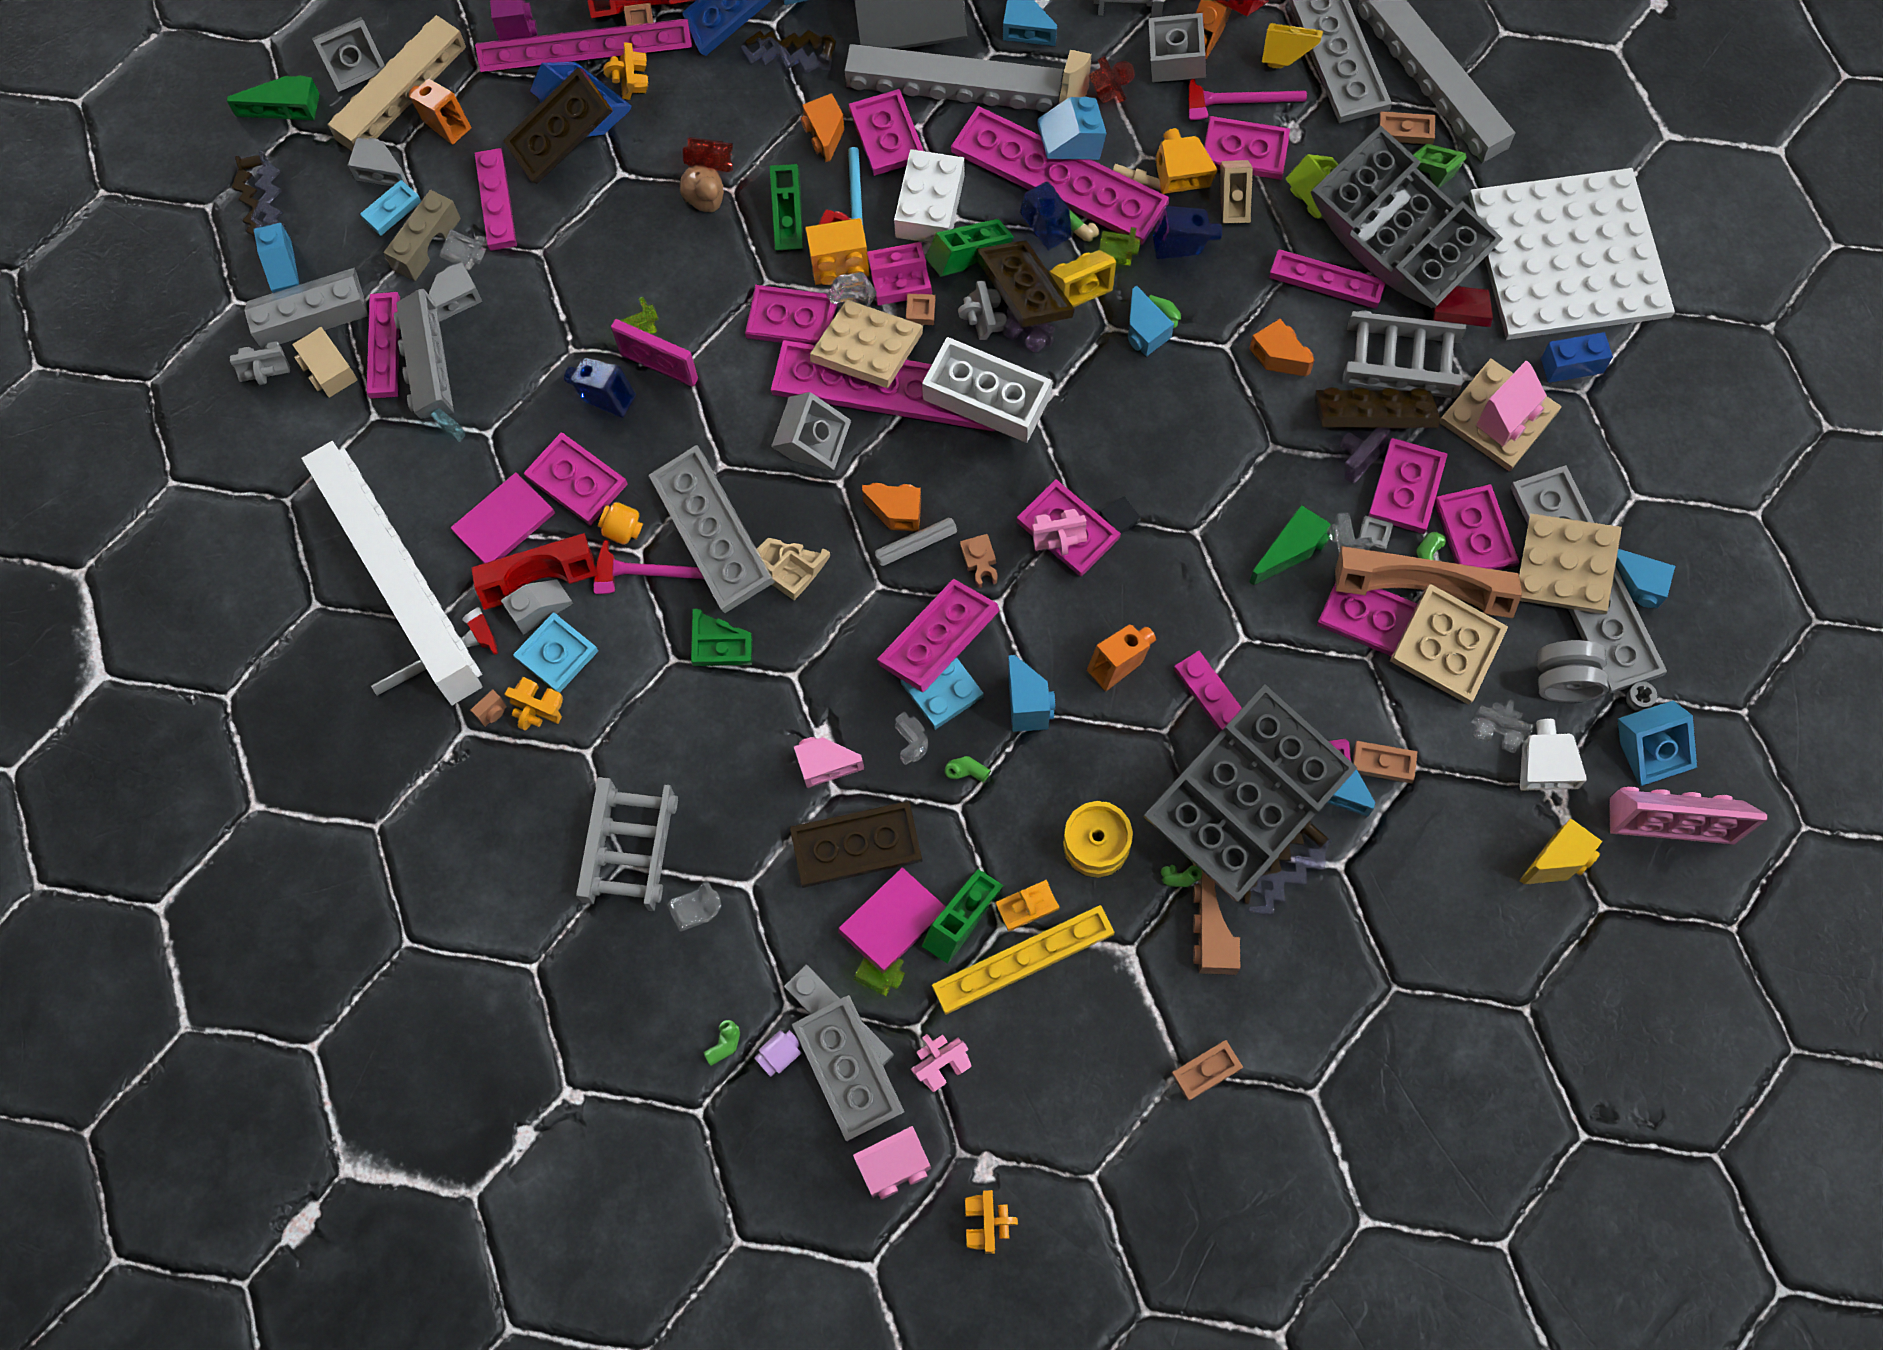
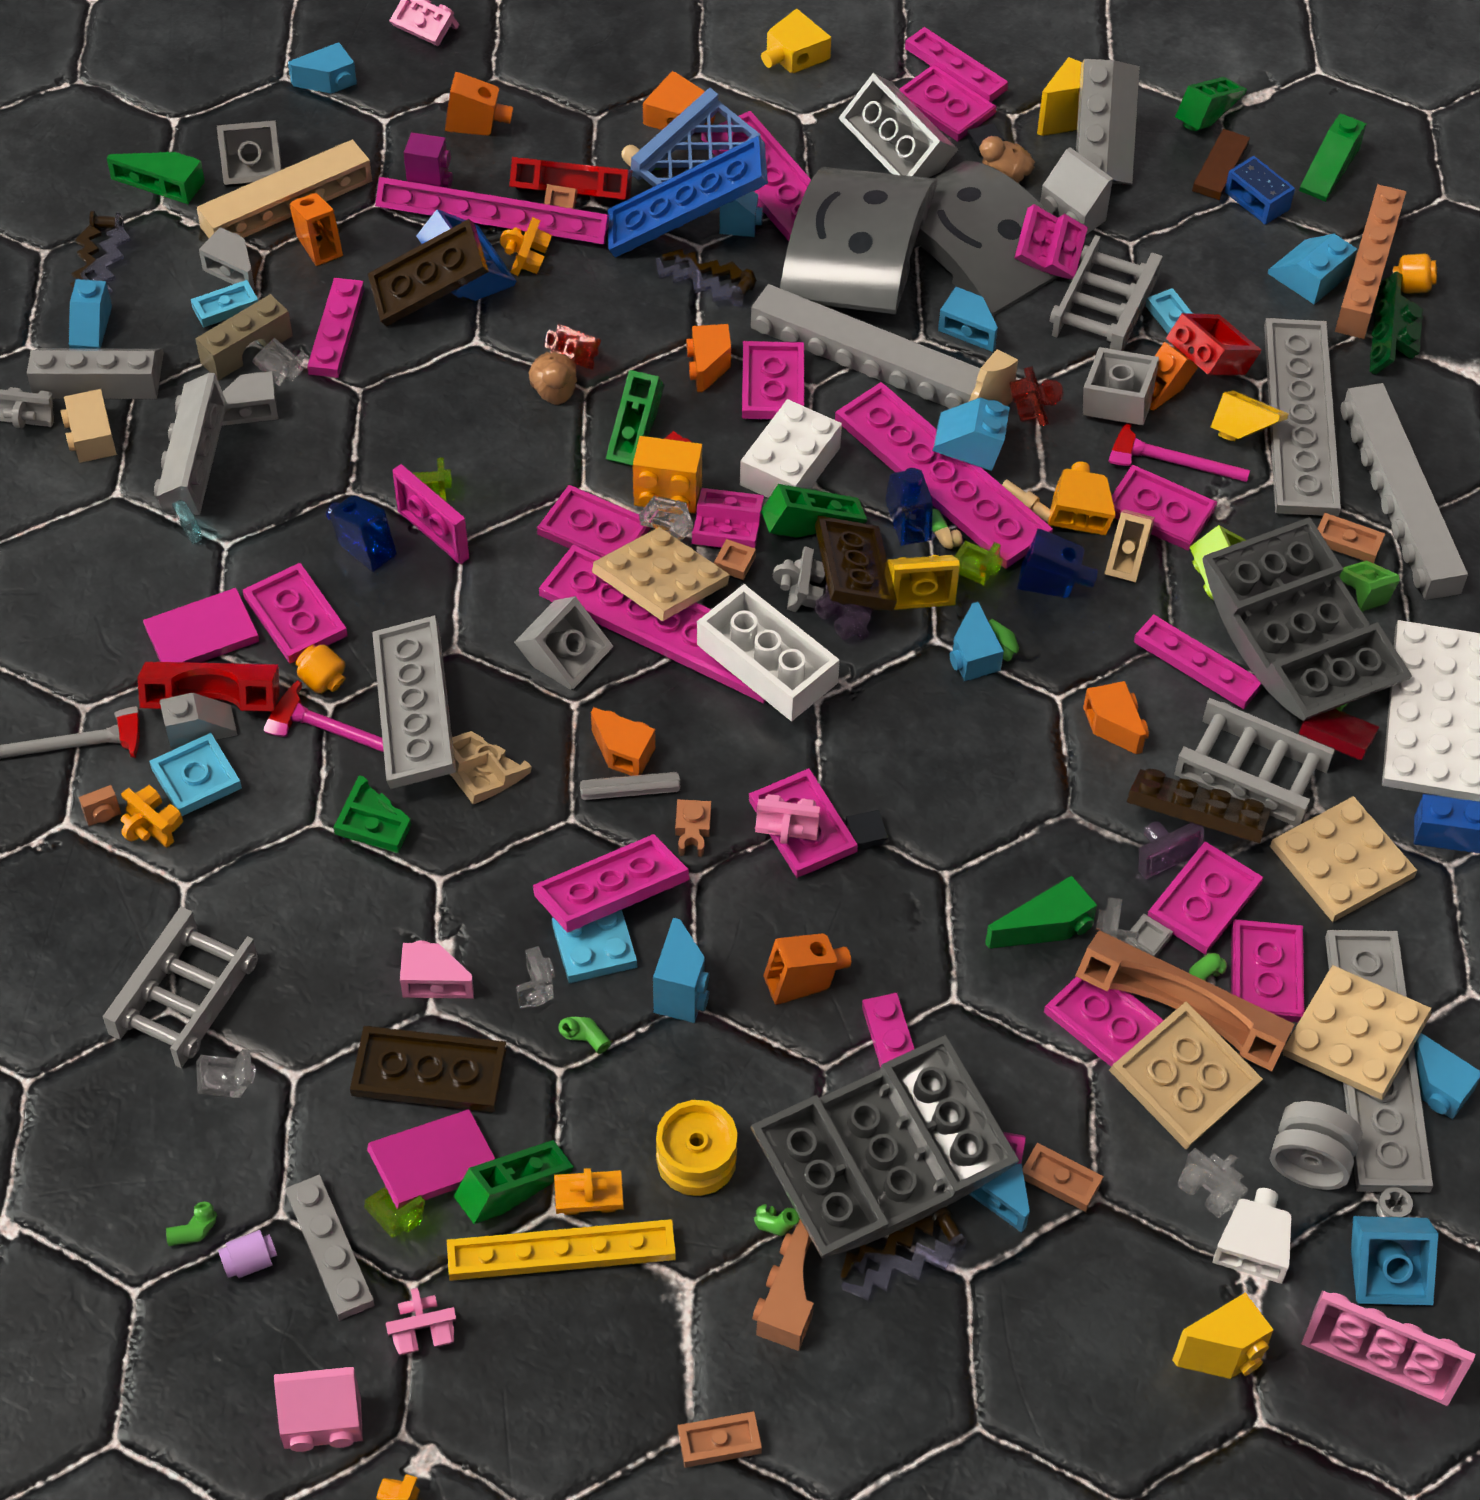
camera: 15 degrees right, 15 degrees down
(383, 346) = (152, 434): dark pink plate -> none
(394, 572) = (62, 641): white brick -> none
(847, 1068) = (314, 1293): light grey plate -> none
(855, 184) = (717, 425): medium azure bar -> none
(1513, 406) = (1352, 843): bright pink slope -> none

